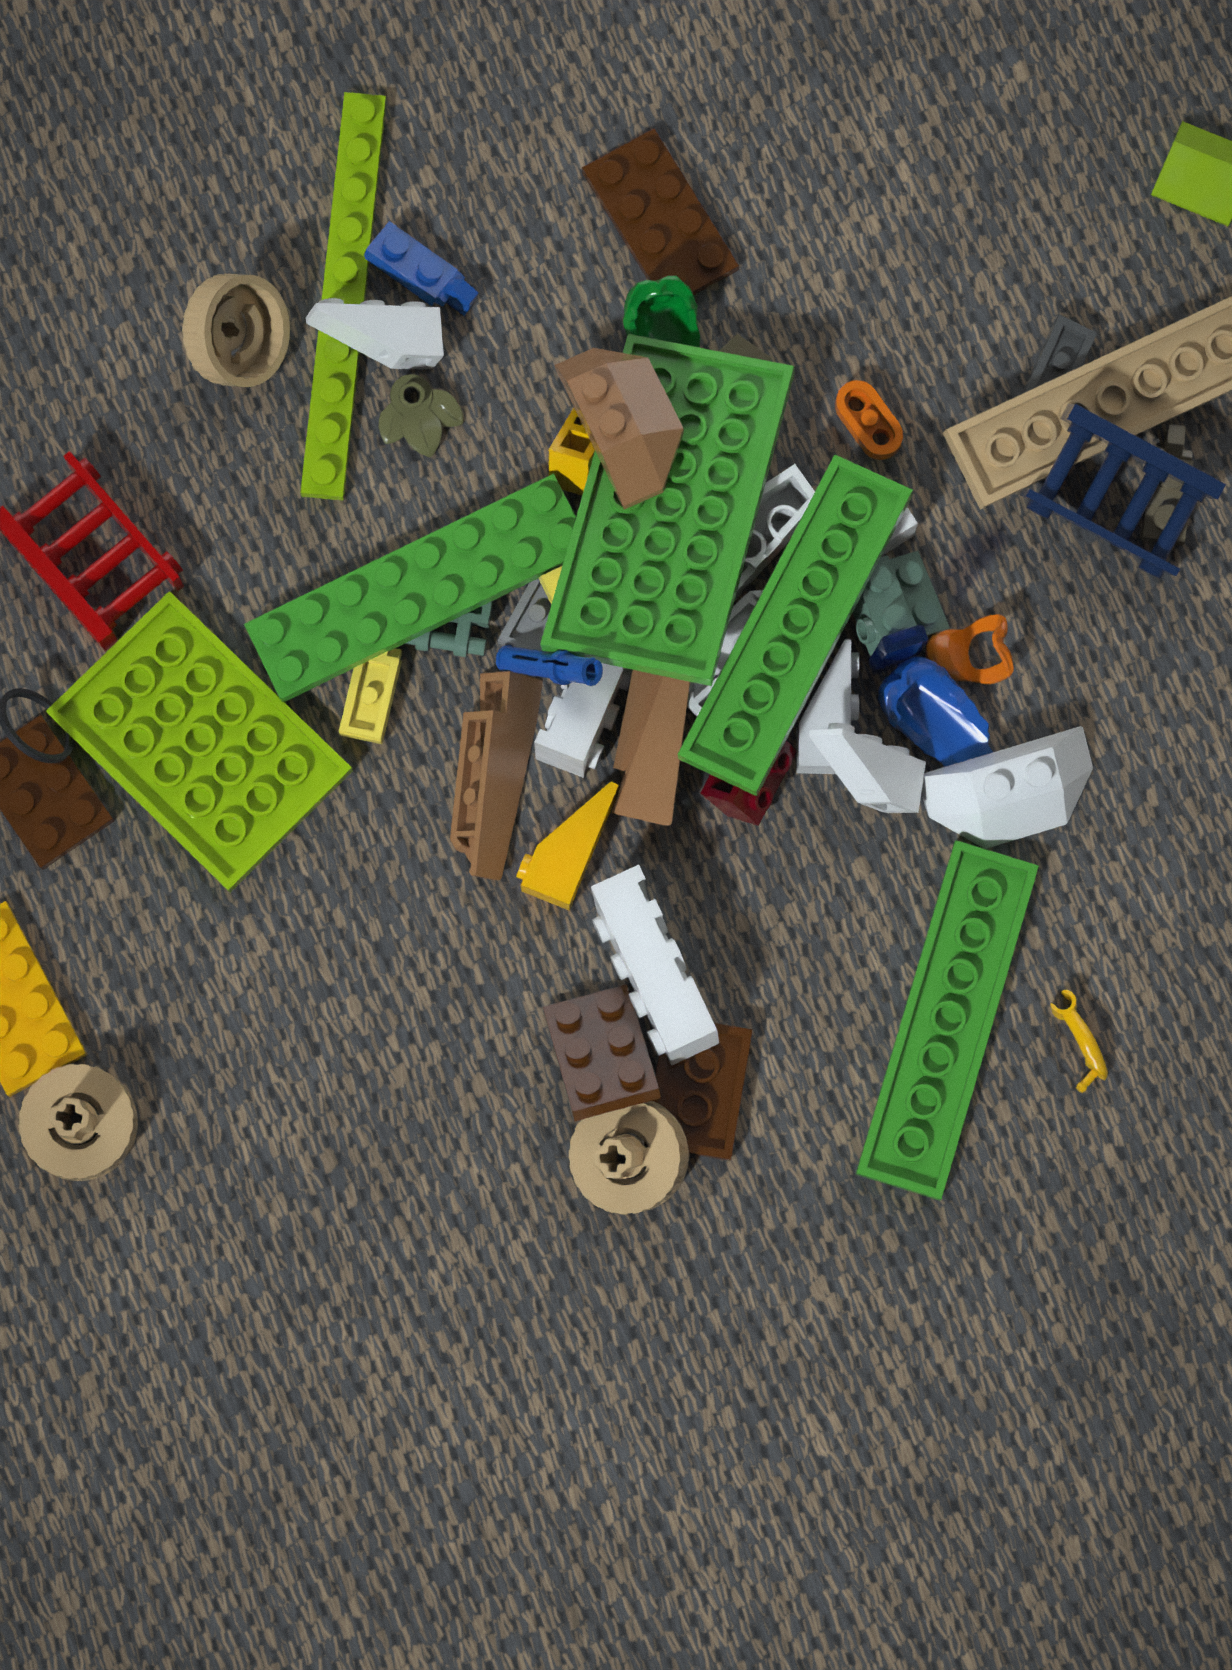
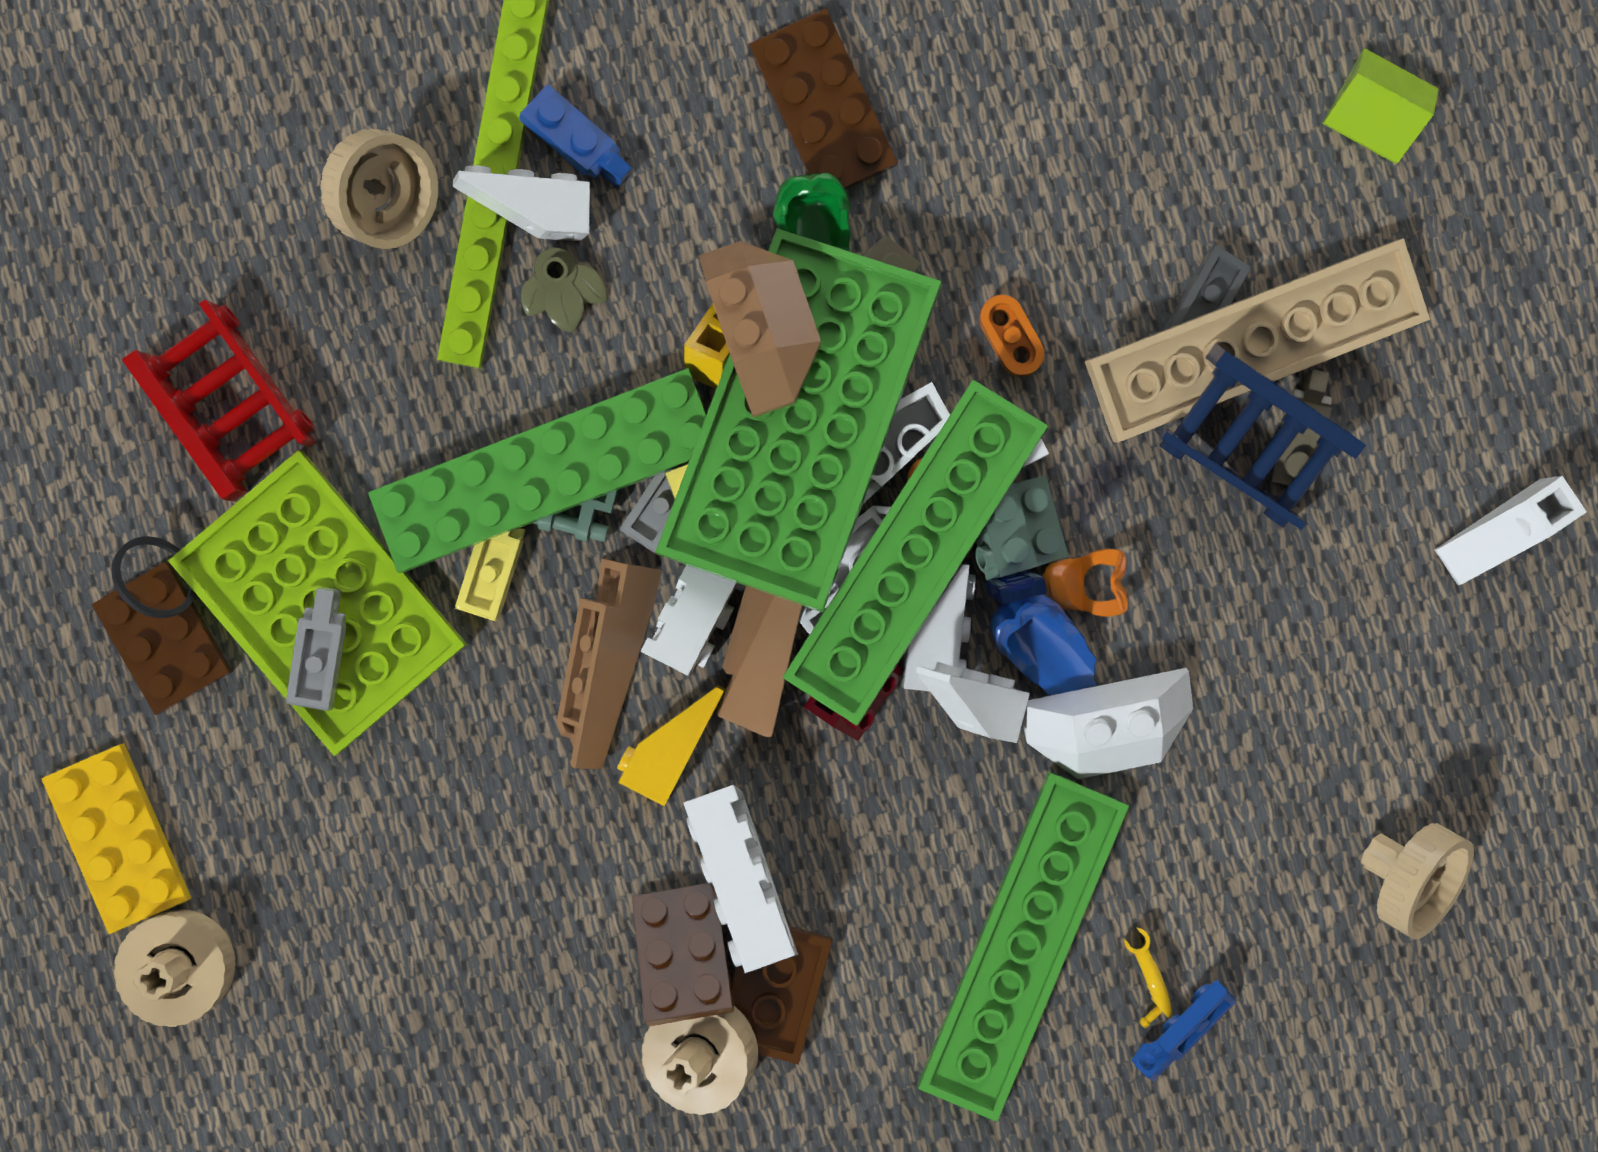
camera: 10 degrees right, 10 degrees up
(206, 784) = (317, 653): none -> light grey hinge
(558, 666) = (691, 584): blue pin -> none
(1124, 1088) = (1184, 1031): none -> blue hinge

